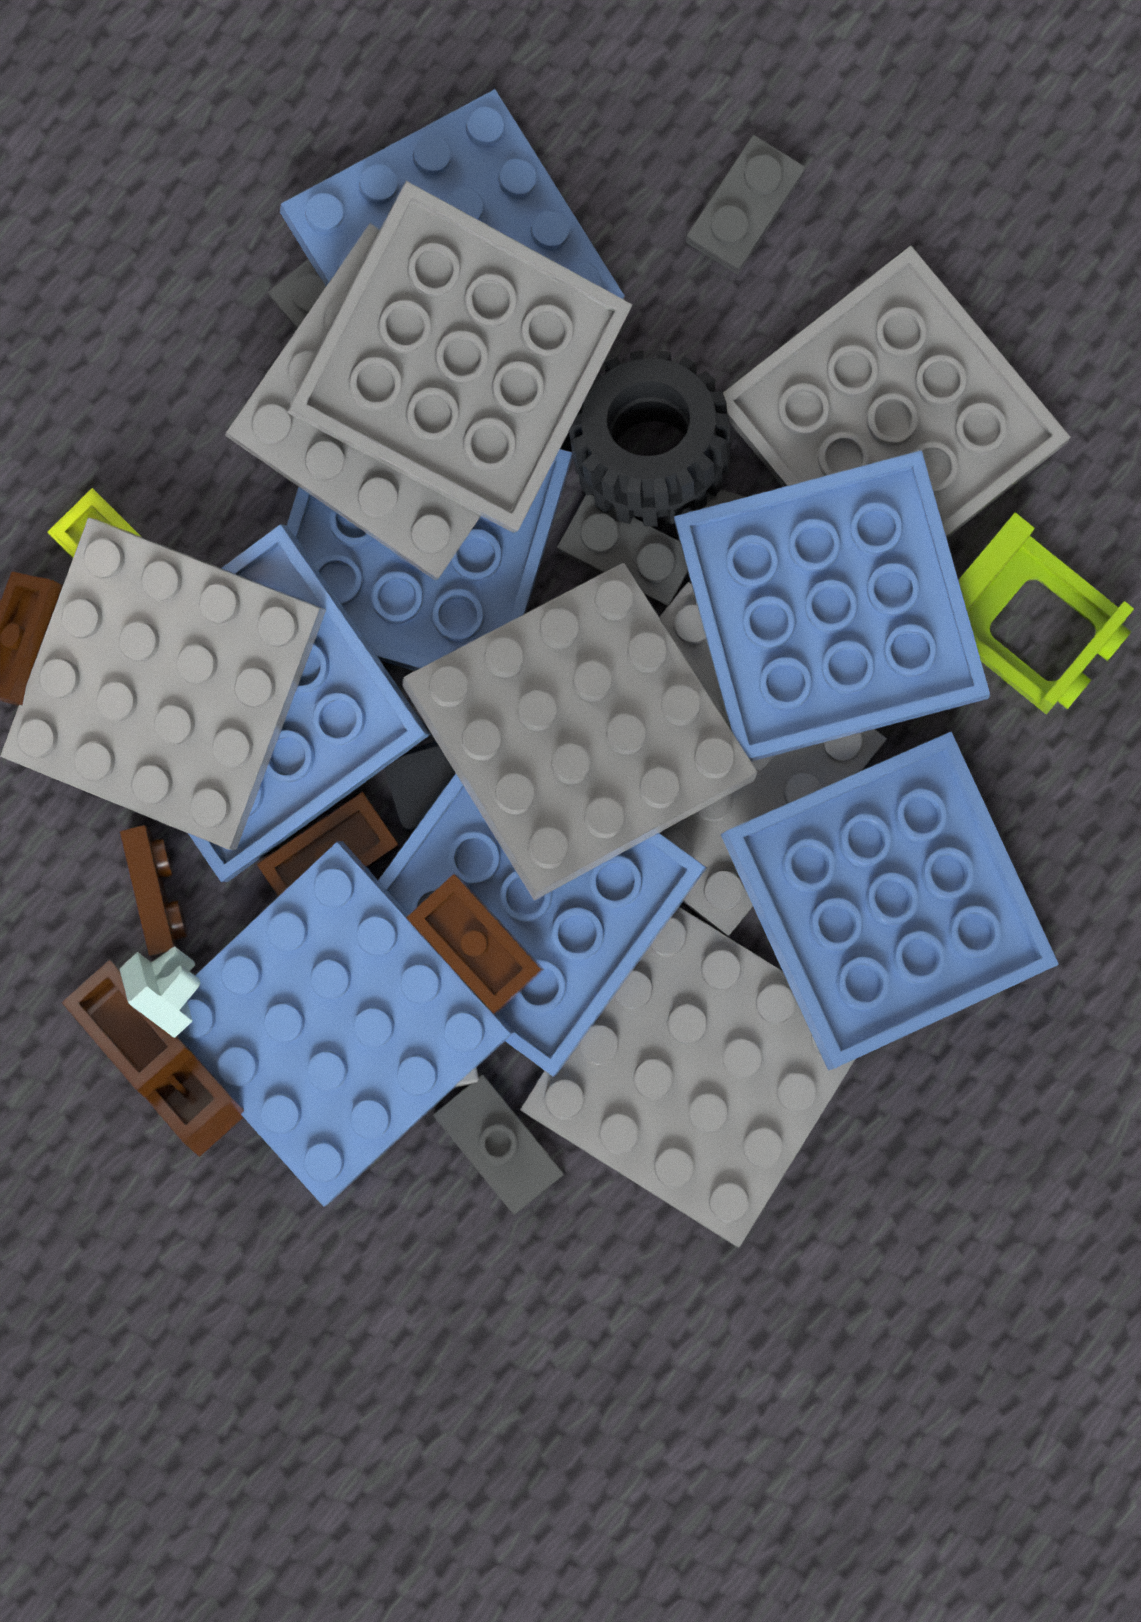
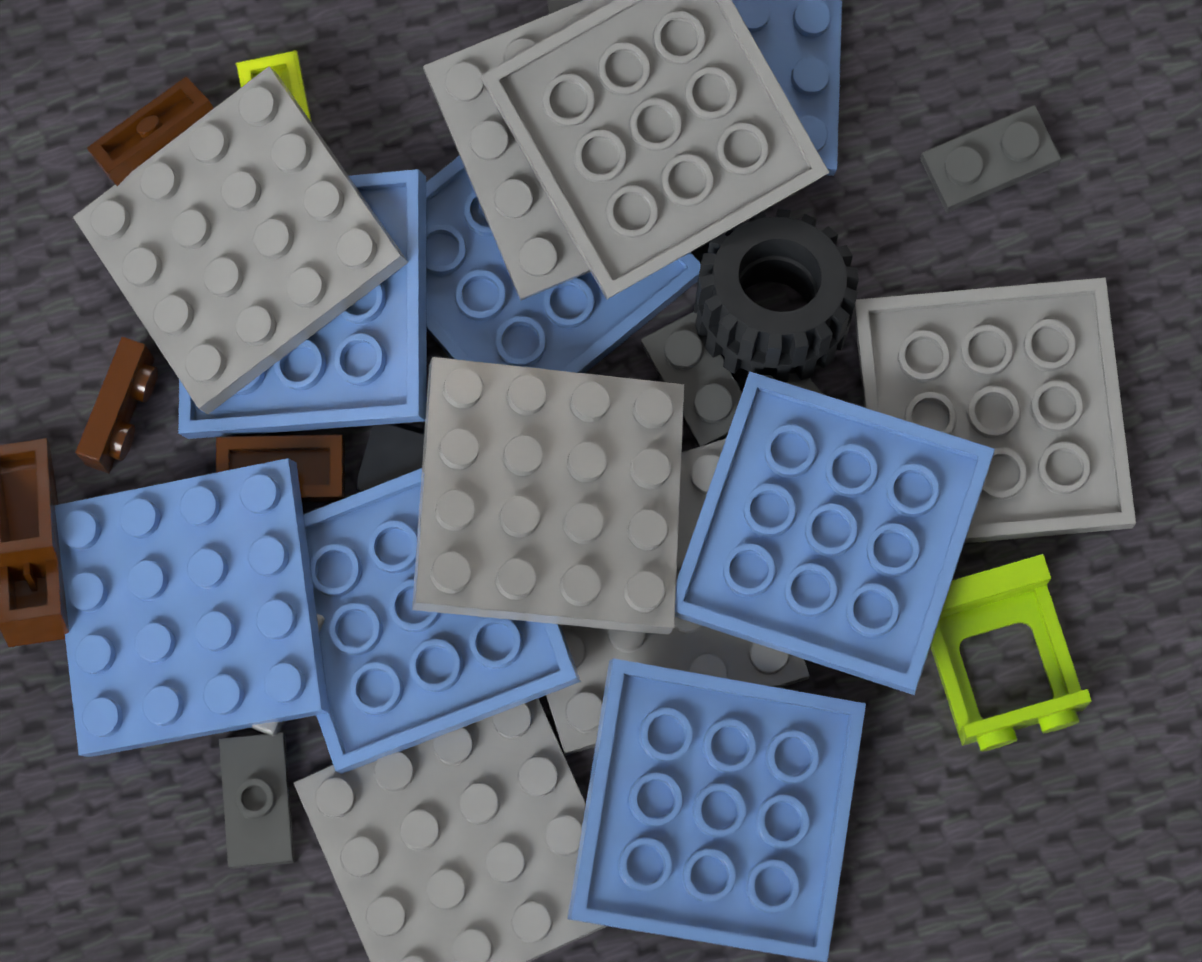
camera: 40 degrees right, 5 degrees down
(161, 988) = (64, 485): light aqua tile -> none
(475, 943) = (343, 616): reddish brown plate -> none

